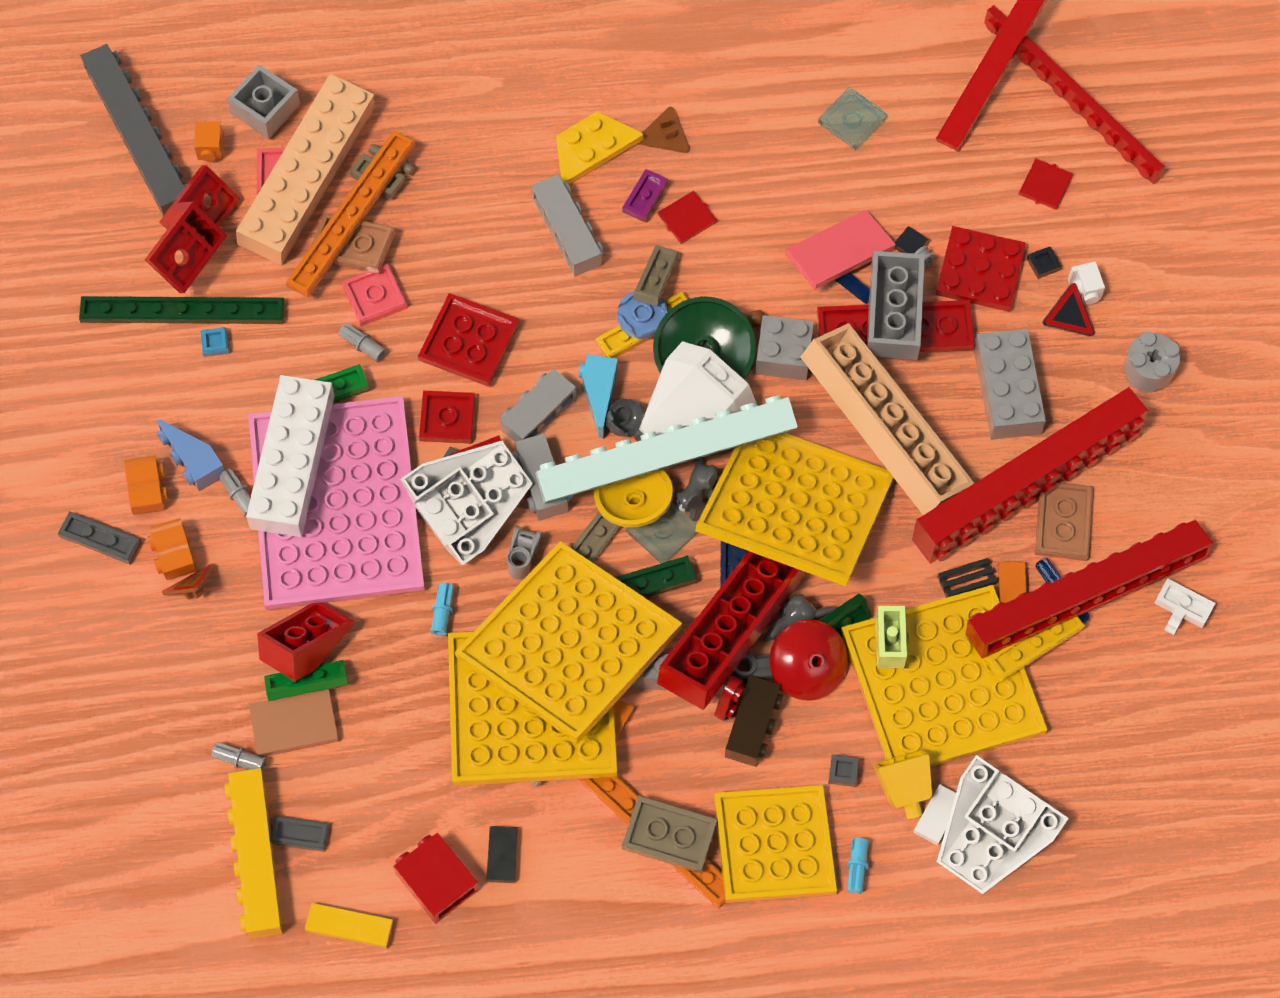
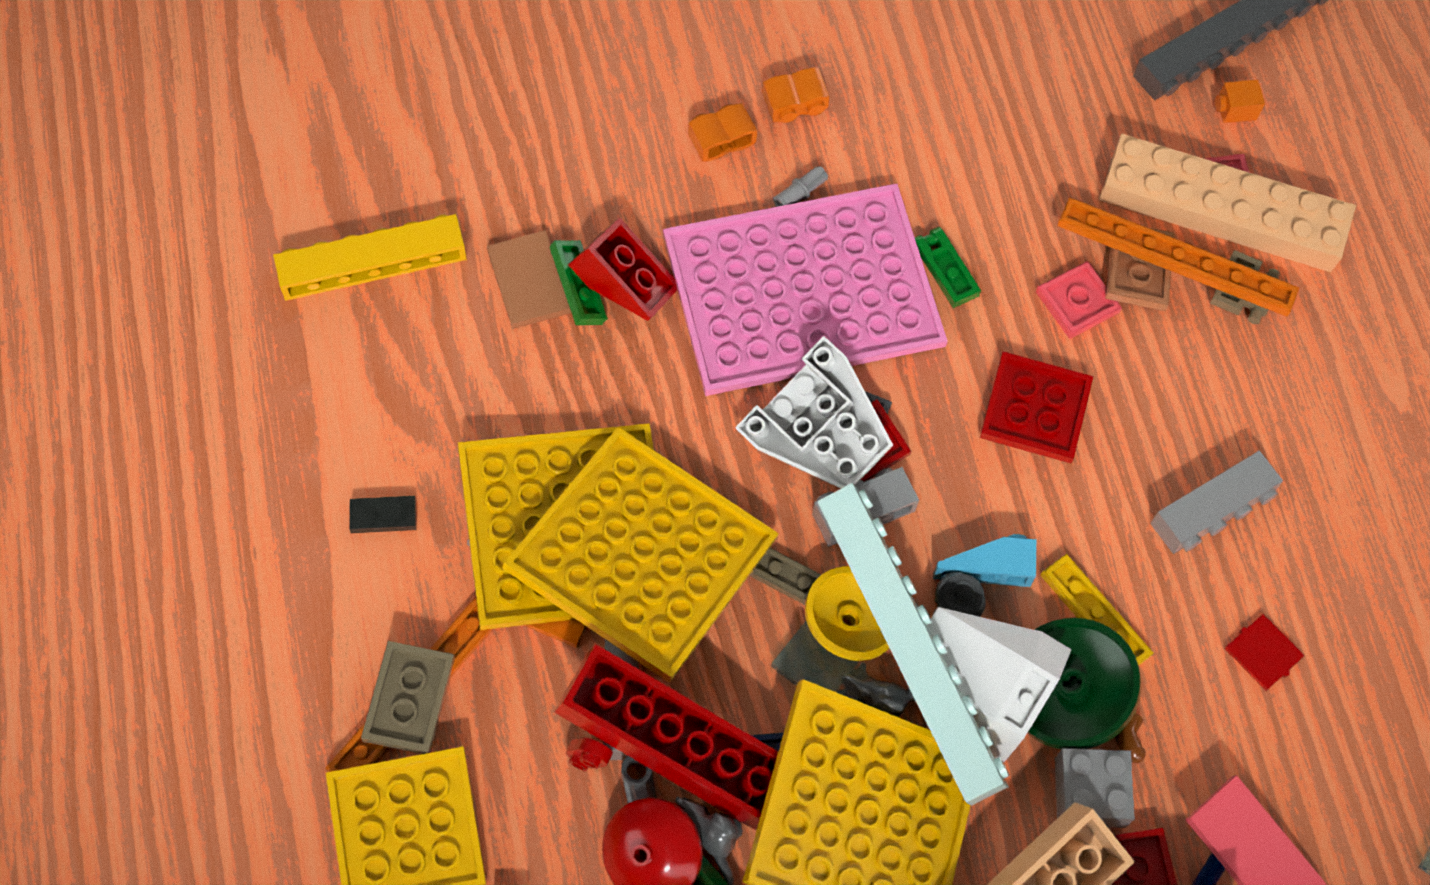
camera: 80 degrees right, 0 degrees up
(99, 537) = (730, 65): dark grey tile -> none
(182, 310) = (1020, 109): dark green tile -> none
(192, 229) = (1115, 91): red bracket -> none
(192, 584) = (681, 153): dark orange piece -> none
(197, 457) = (834, 139): medium blue slope -> none
(214, 342) = (986, 143): dark azure tile -> none
(238, 757) = (482, 230): light grey axle -> none
(263, 101) = (1304, 147): light grey brick -> none
(290, 456) = (846, 226): white brick -> none
(299, 833) = (399, 302): dark grey tile -> none
(349, 925) = (293, 363): yellow tile -> none
(362, 342) = (1012, 293): light grey axle -> none
(435, 877) = (349, 443): red brick -> none
(442, 609) = (681, 416): medium azure axle -> none
(446, 417) = (931, 396): red tile -> none
(524, 548) = (767, 496): light grey piece -> none
(538, 407) = (957, 494): light grey brick -> none
(592, 144) = (1340, 523): yellow wing -> none
(639, 318) = (1110, 601): medium blue tile -> none
(645, 195) = (1282, 594): magenta plate -> none
(656, 275) = (1166, 615): dark tan tile -> none
(660, 577) = (746, 654): dark green plate -> none
(665, 133) = (1381, 613): dark orange piece -> none
(753, 721) = (566, 790): dark brown brick -> none

